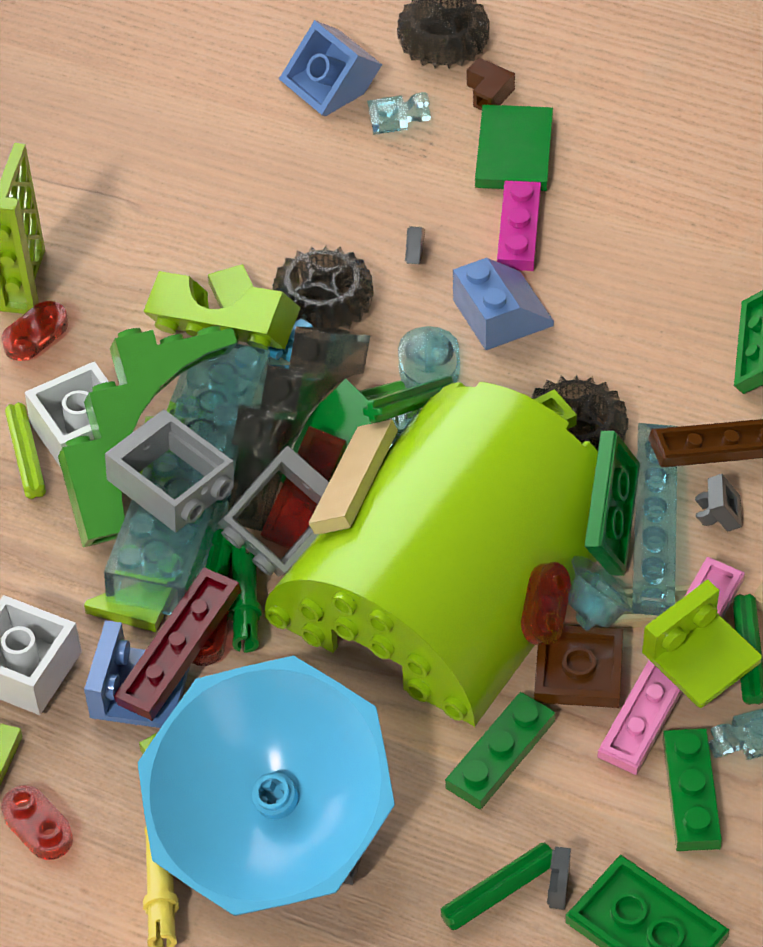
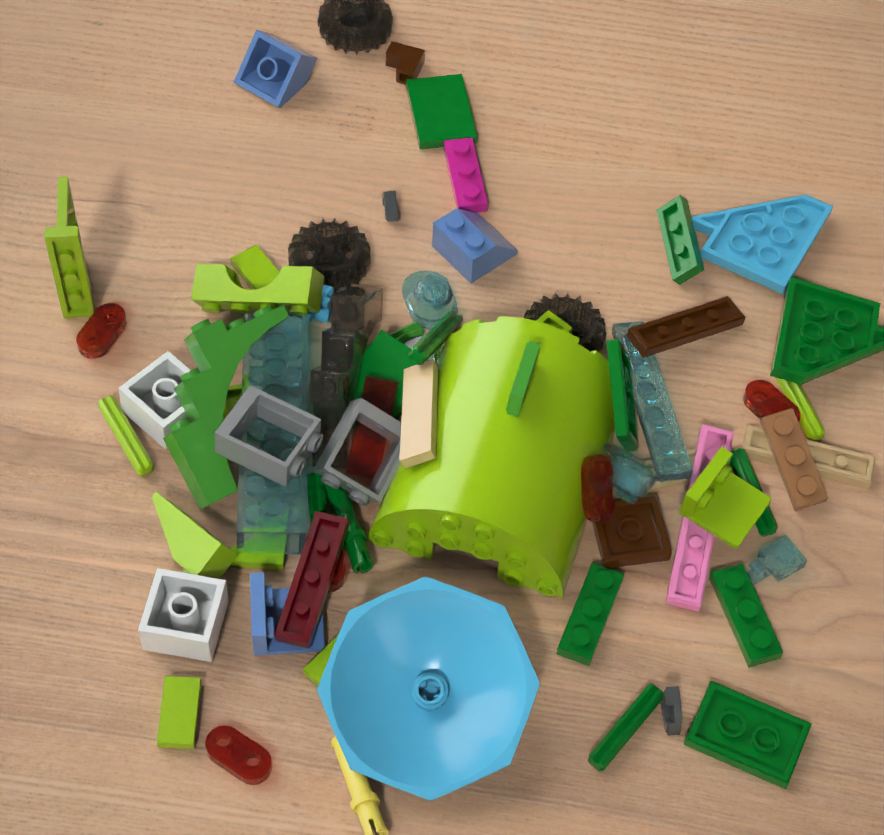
camera: 20 degrees left, 5 degrees up
(55, 577) = (191, 543): none -> lime slope
(392, 113) = (336, 99): clear light blue plate -> none
(476, 452) = (523, 378): none -> bright green tile
(722, 504) = (697, 379): dark grey tile -> none

